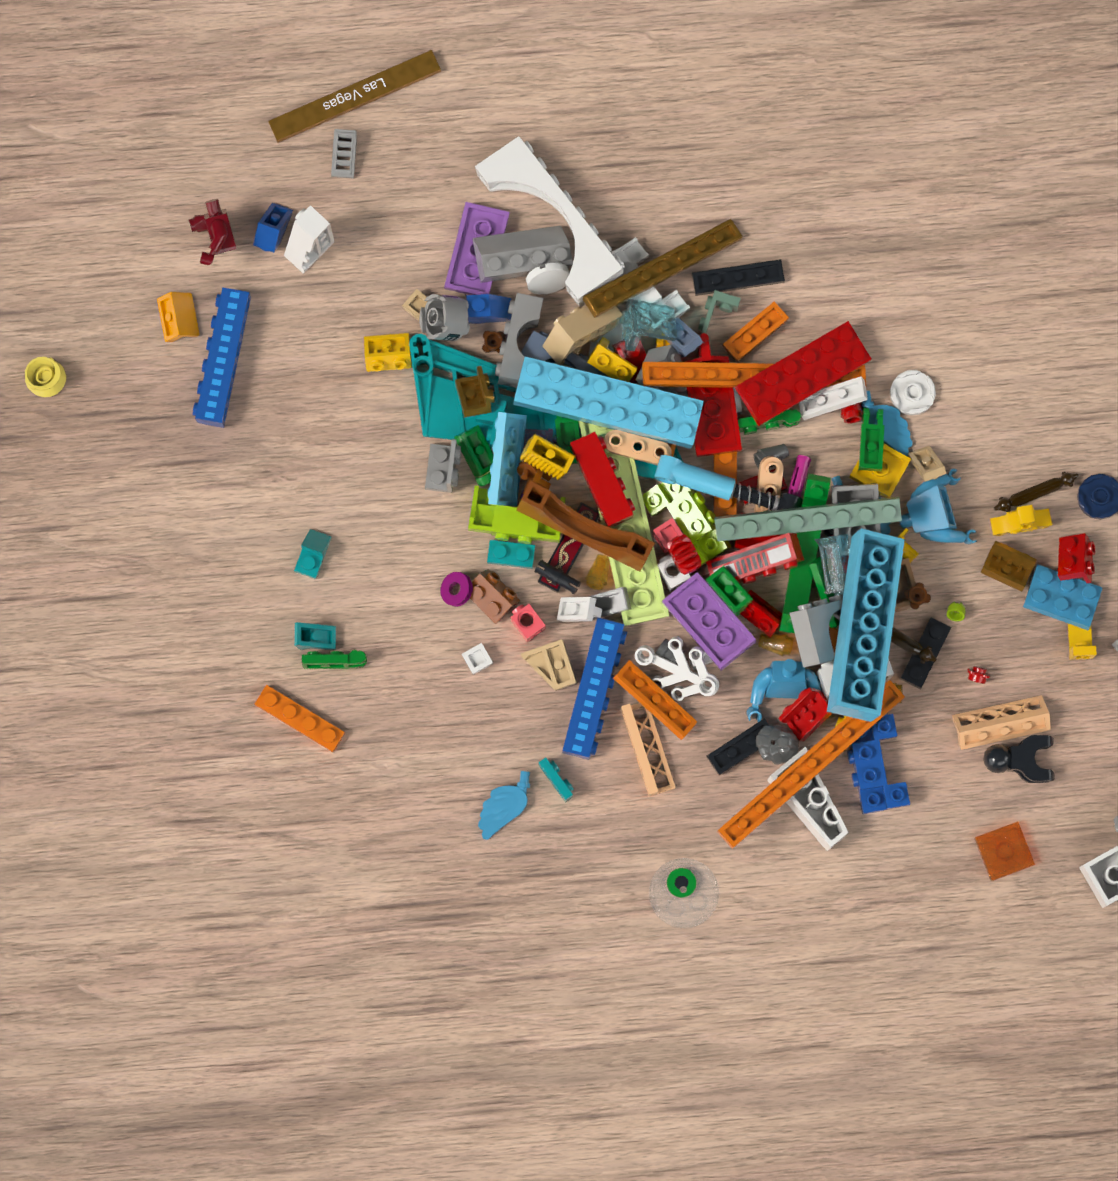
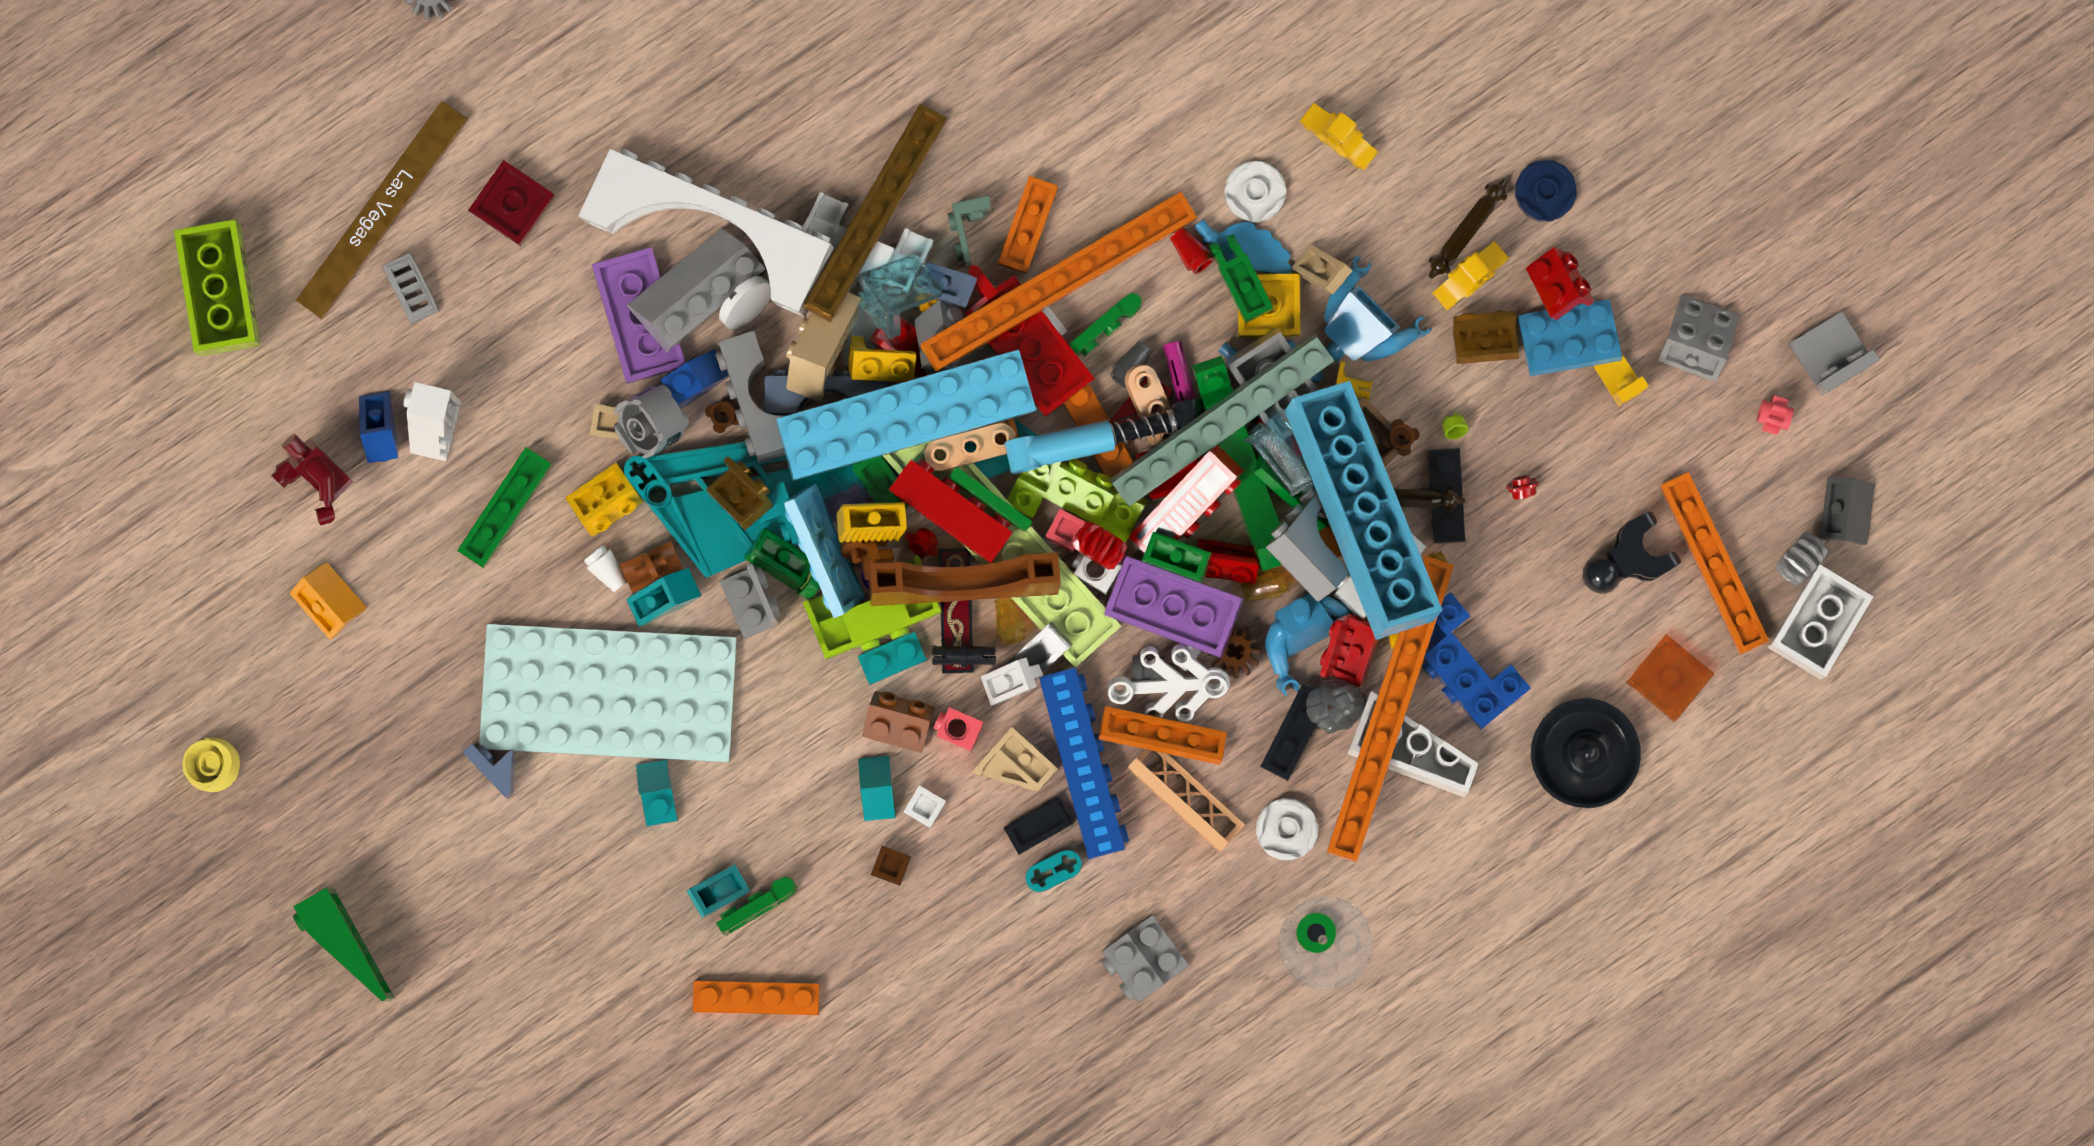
camera: 30 degrees left, 5 degrees up
(58, 513) = (331, 926): none -> green slope
(221, 484) = (500, 774): none -> sand blue slope
(222, 357) = (411, 619): blue brick -> none
(223, 85) = (217, 288): none -> lime brick
(319, 474) = (608, 693): none -> light aqua plate
(322, 321) = (504, 507): none -> green plate
(363, 395) = (605, 568): none -> white cone
(389, 433) = (663, 597): none -> teal slope
(392, 410) = (651, 566): none -> dark orange hips
(434, 683) = (891, 865): none -> reddish brown plate
(437, 136) = (511, 203): none -> dark red plate
(447, 589) = (839, 740): magenta piece -> none
(453, 630) = (876, 788): none -> teal slope
(504, 806) = (1056, 962): dark azure animal -> none
(537, 741) = (1056, 878): none -> teal beam
(542, 713) = (1038, 826): none -> black tile
(551, 771) = (1113, 900): teal plate -> none
(560, 836) = (1143, 959): none -> light grey plate
(572, 492) = (922, 542): none -> red plate
(631, 487) = (990, 499): none -> green tile
(700, 806) = (1287, 829): none -> white tile
(726, 679) = (1232, 662): none -> reddish brown gear
(738, 277) = (969, 170): black tile -> none
(803, 373) = (1115, 245): red plate -> none
(834, 398) = (1166, 254): white plate -> none
(922, 867) = (1585, 753): none -> black hat
(987, 385) = (1339, 134): none -> yellow piece
(1003, 725) = (1586, 530): light nougat fence -> none
(1075, 794) = (1714, 563): none -> orange plate

